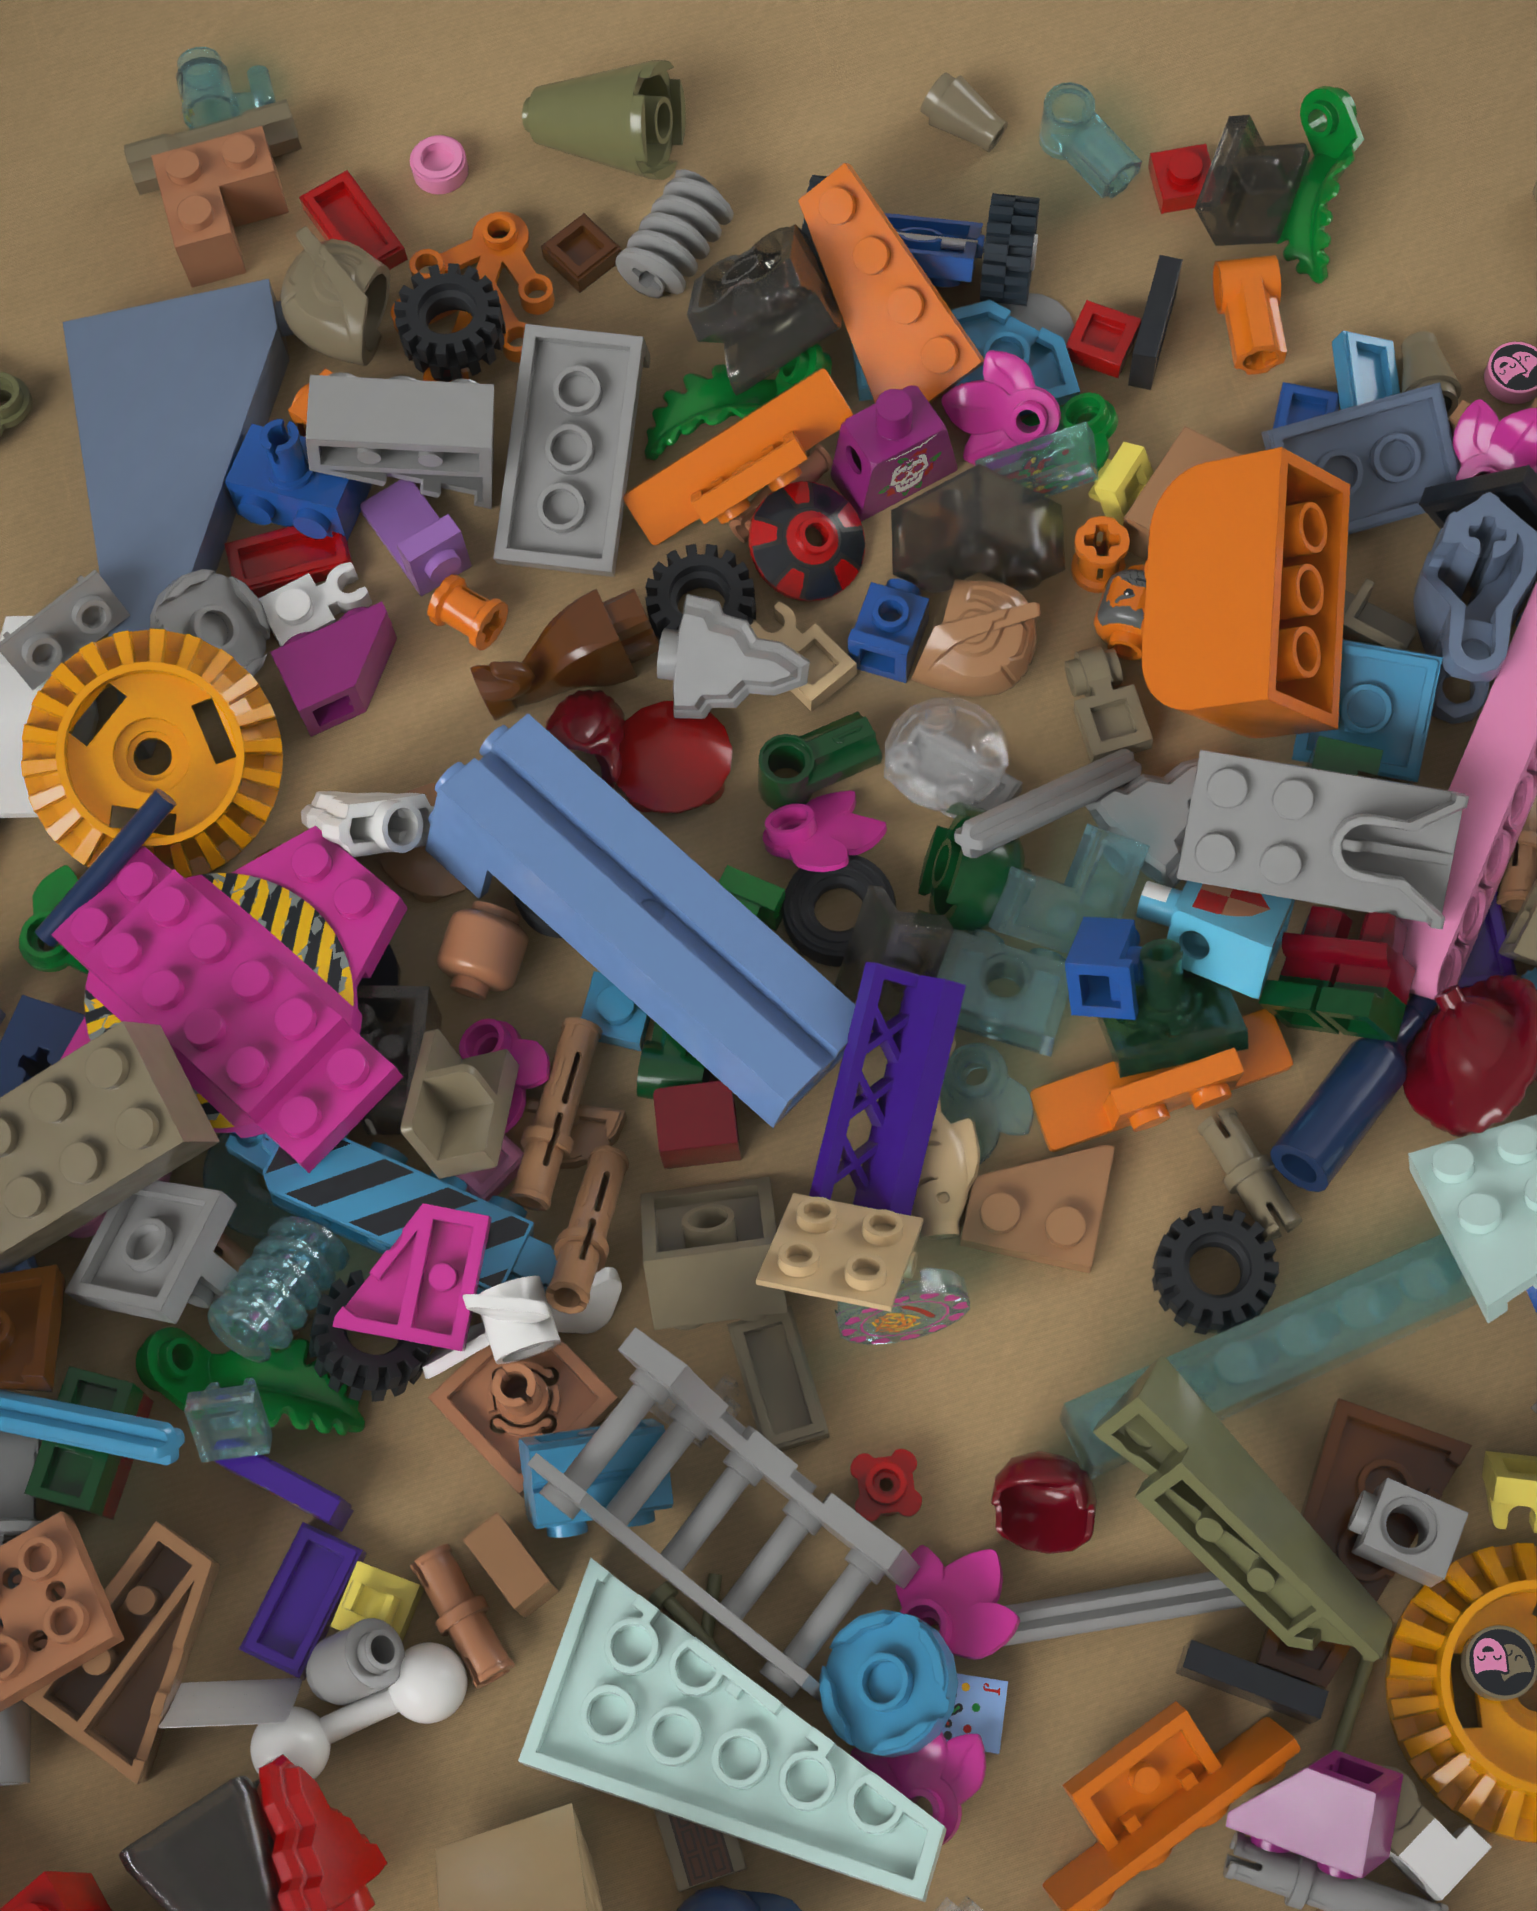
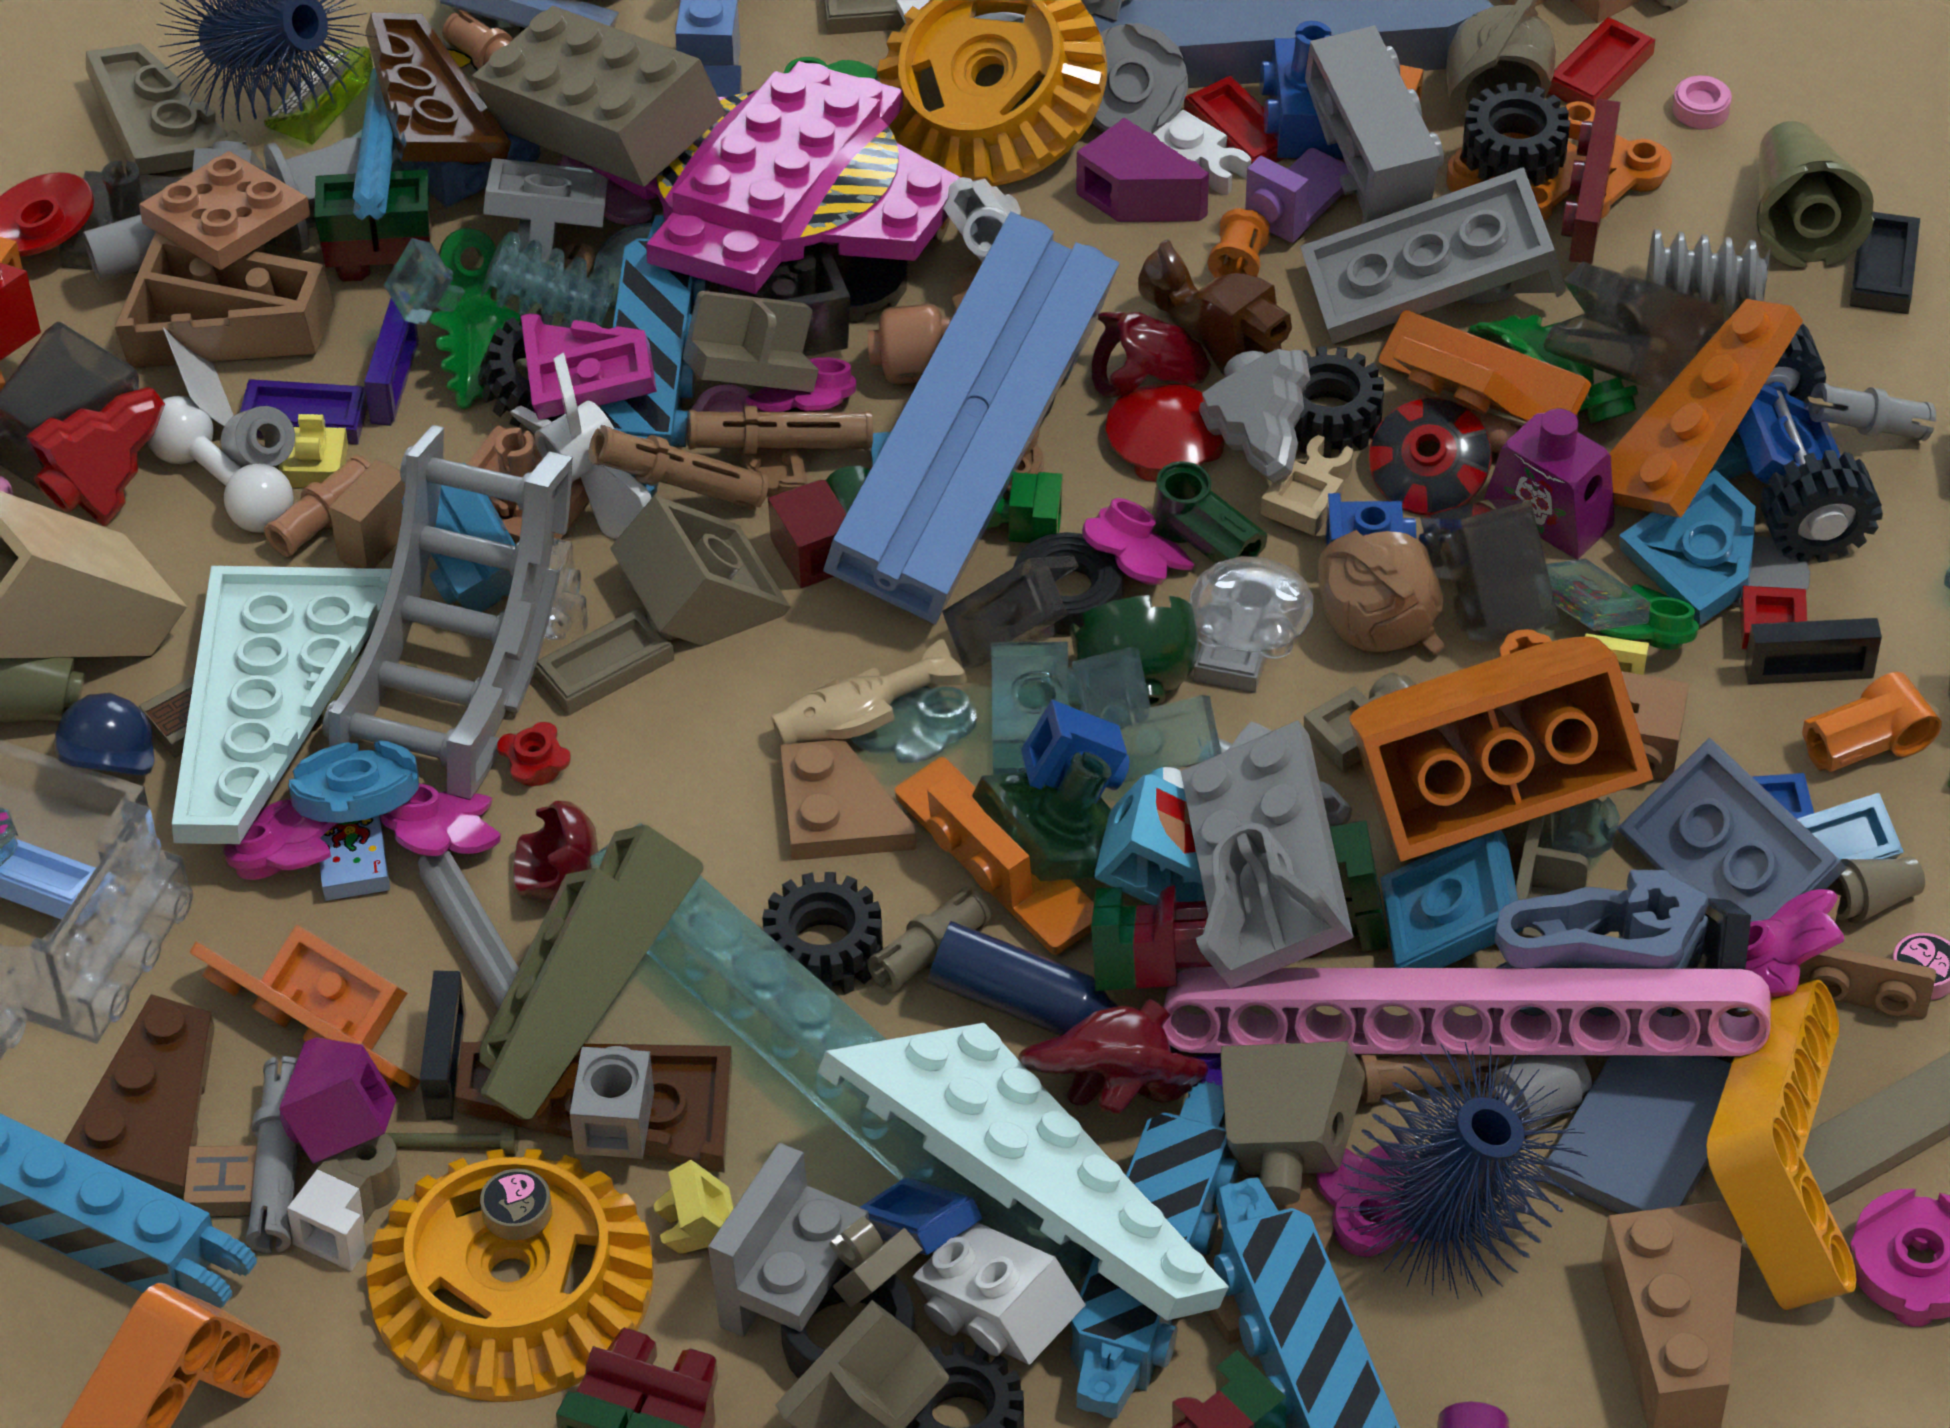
camera: 65 degrees right, 20 degrees down
(109, 862) = (885, 70): dark blue bar -> none
(542, 277) = (1590, 181): none -> dark red plate
(581, 252) = (1662, 214): reddish brown tile -> none
(715, 101) = (1886, 264): none -> black tile
(841, 1252) = (714, 620): tan hinge -> none
(900, 169) = (1872, 411): none -> light grey pin
(905, 1094) = (879, 649): dark purple fence -> none
(917, 1311) = (690, 699): clear light blue tile -> none
(992, 407) = (1641, 545): dark pink plate -> none
(1046, 803) = (1210, 655): light grey axle -> none

